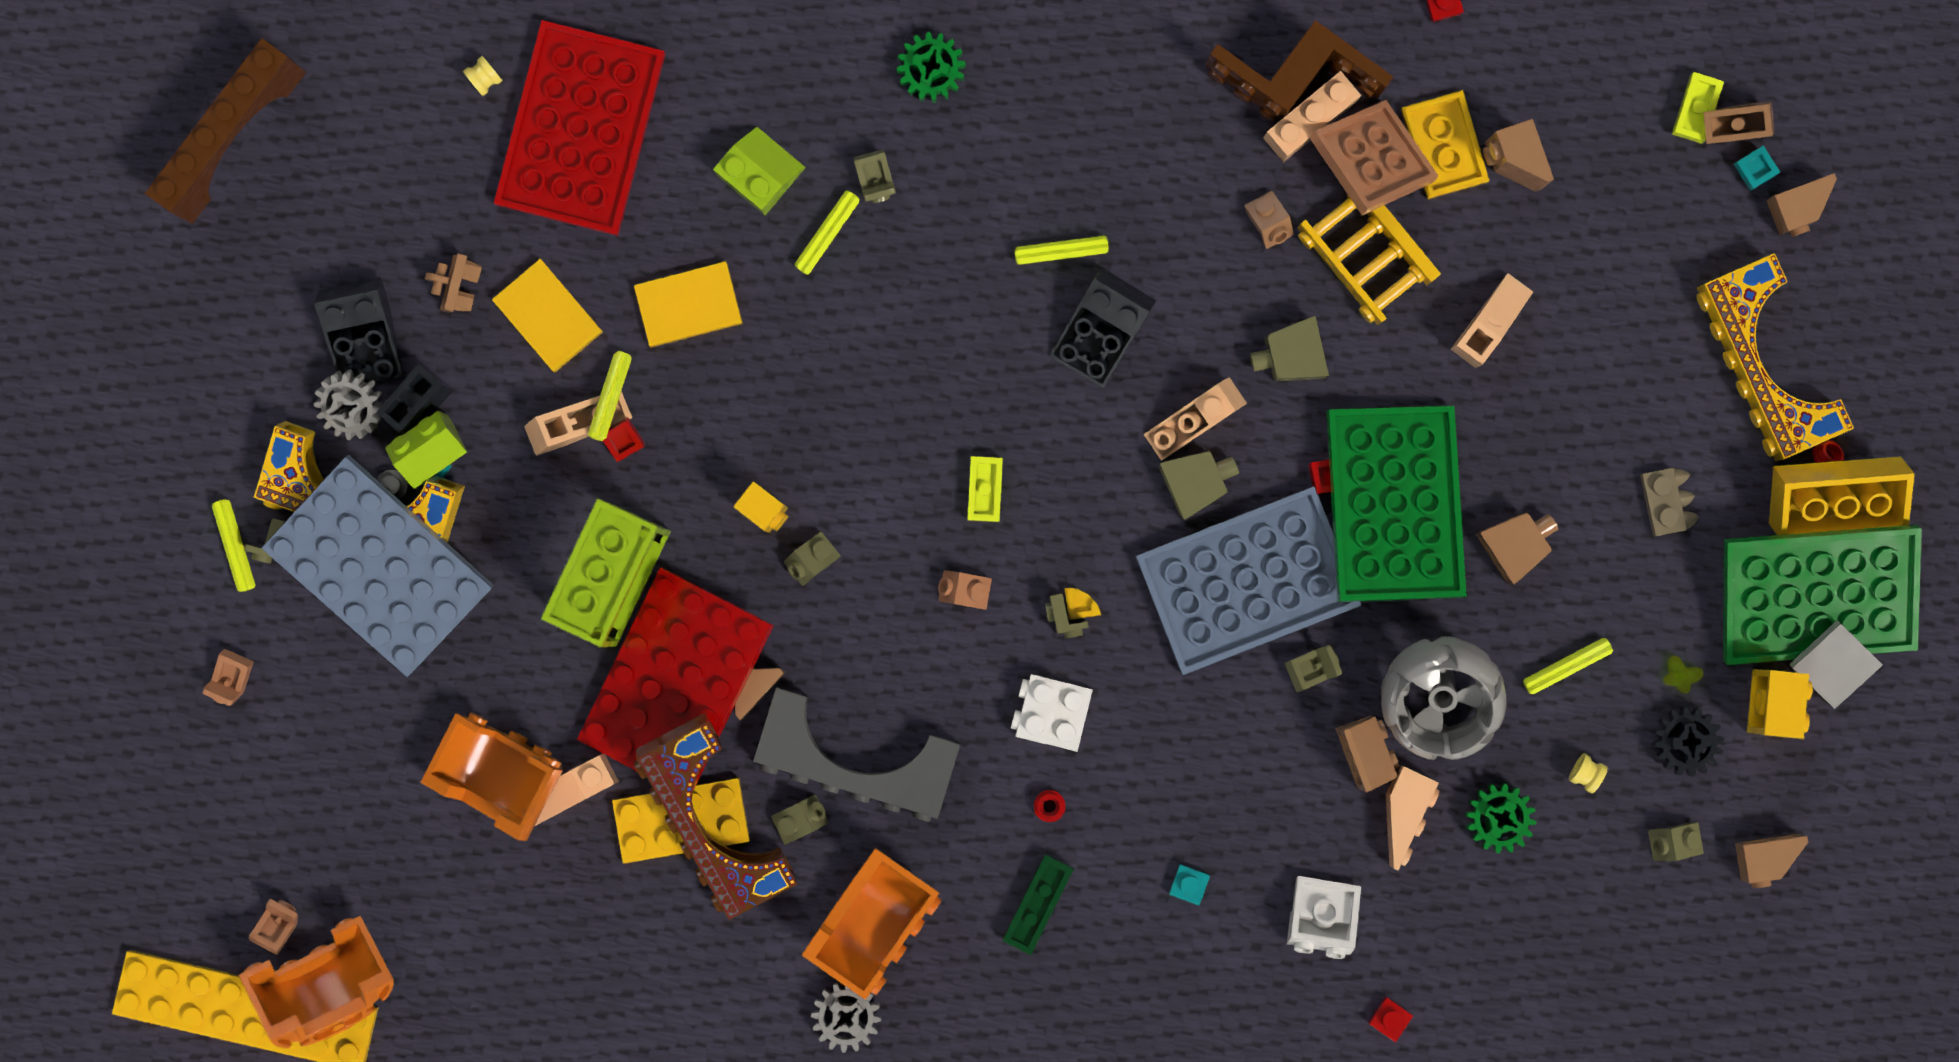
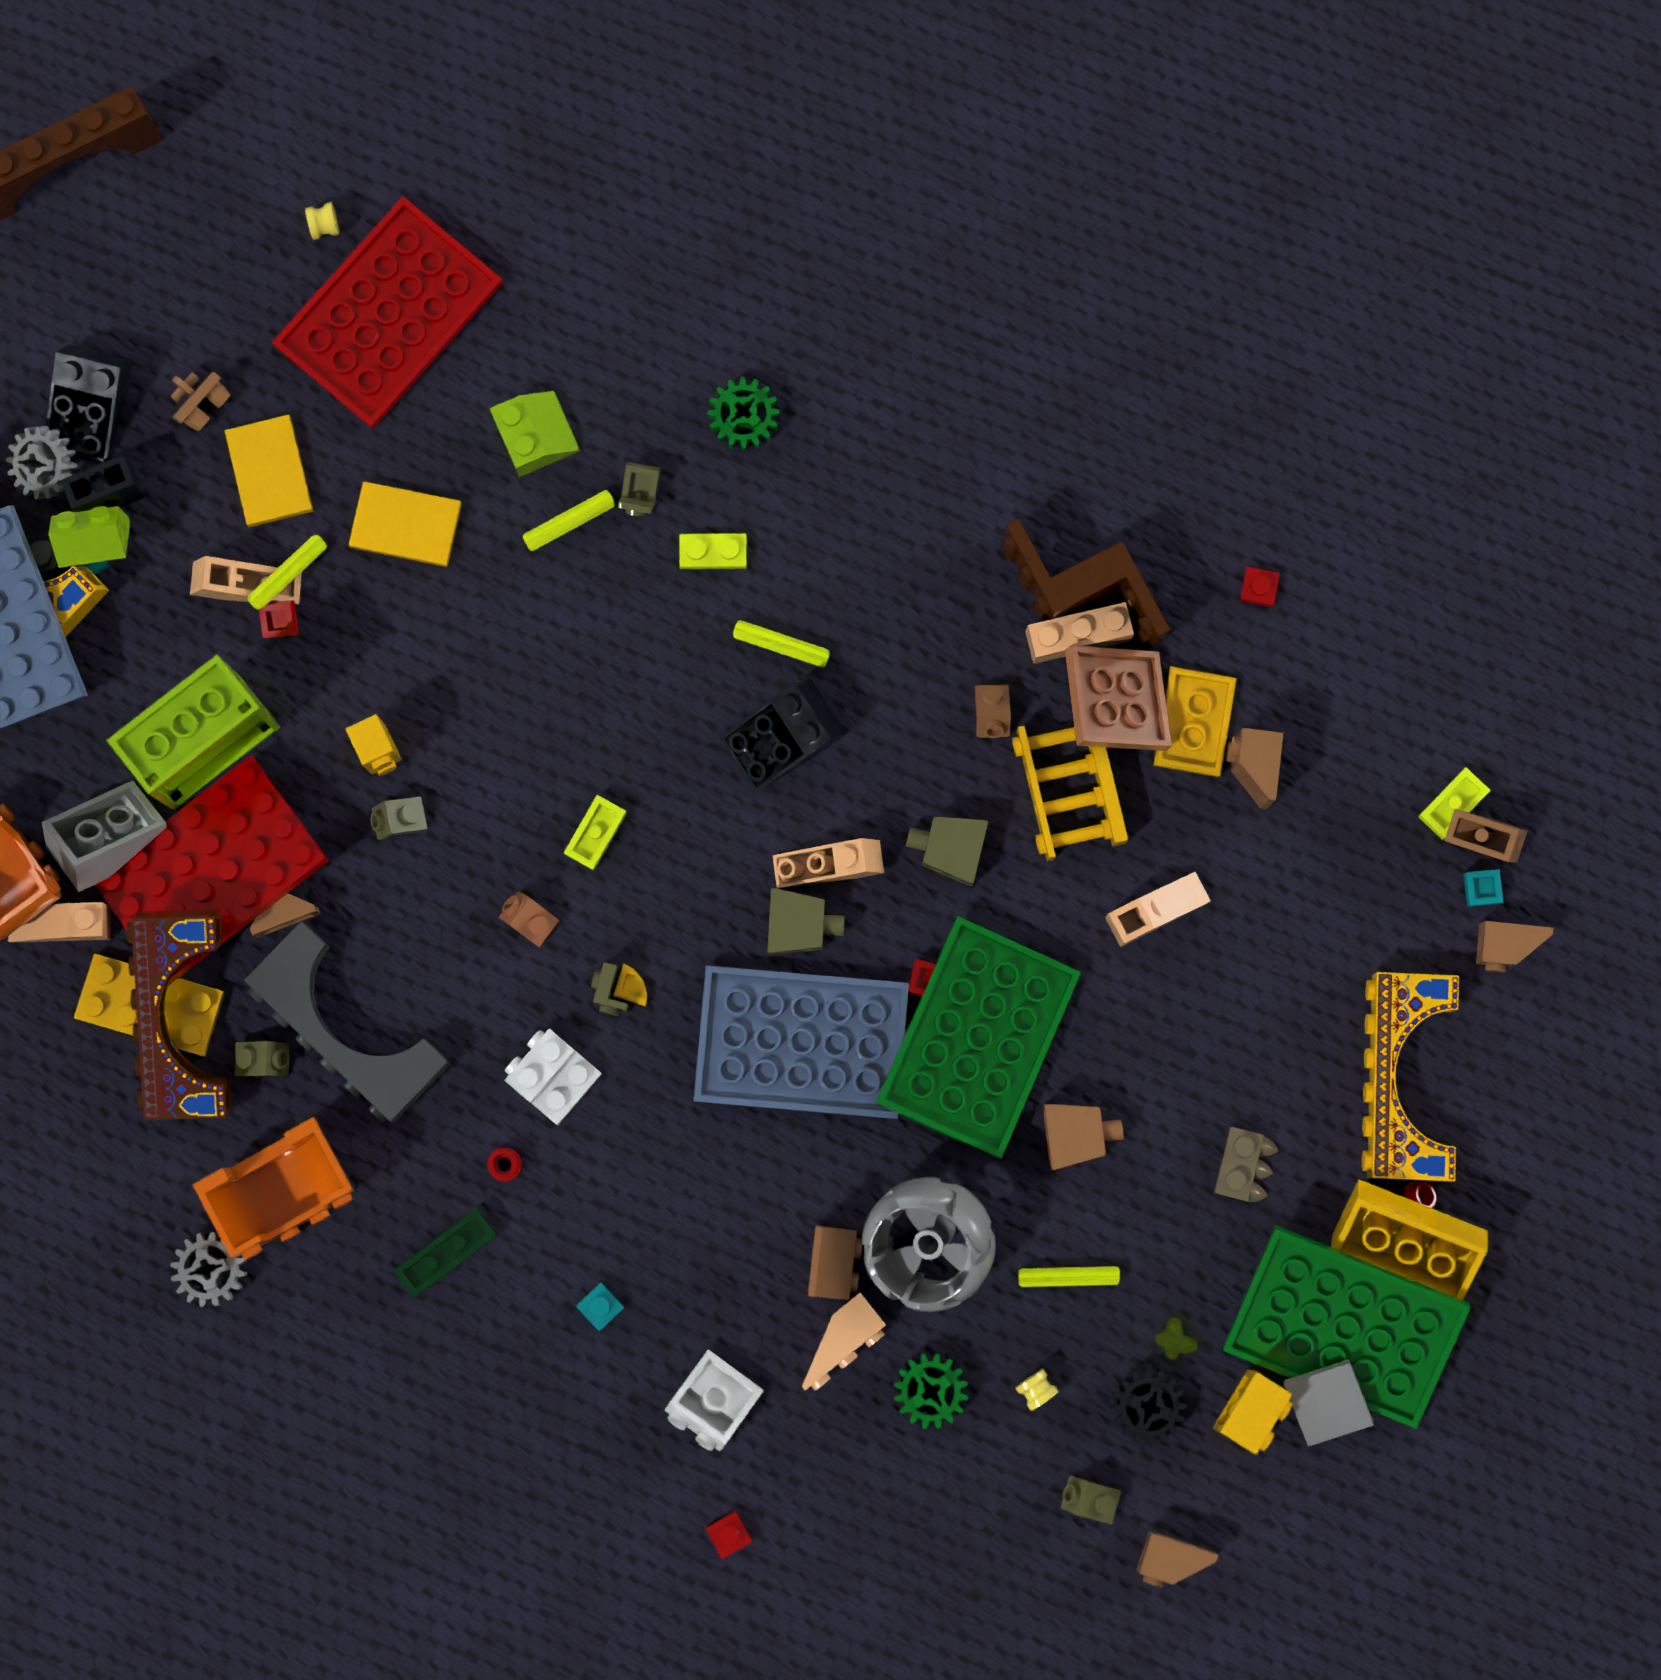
camera: 25 degrees right, 5 degrees down
(568, 697) = (102, 834): none -> light grey slope
(963, 198) = (713, 551): none -> neon yellow plate
(1313, 668) = (821, 1156): olive bracket -> none

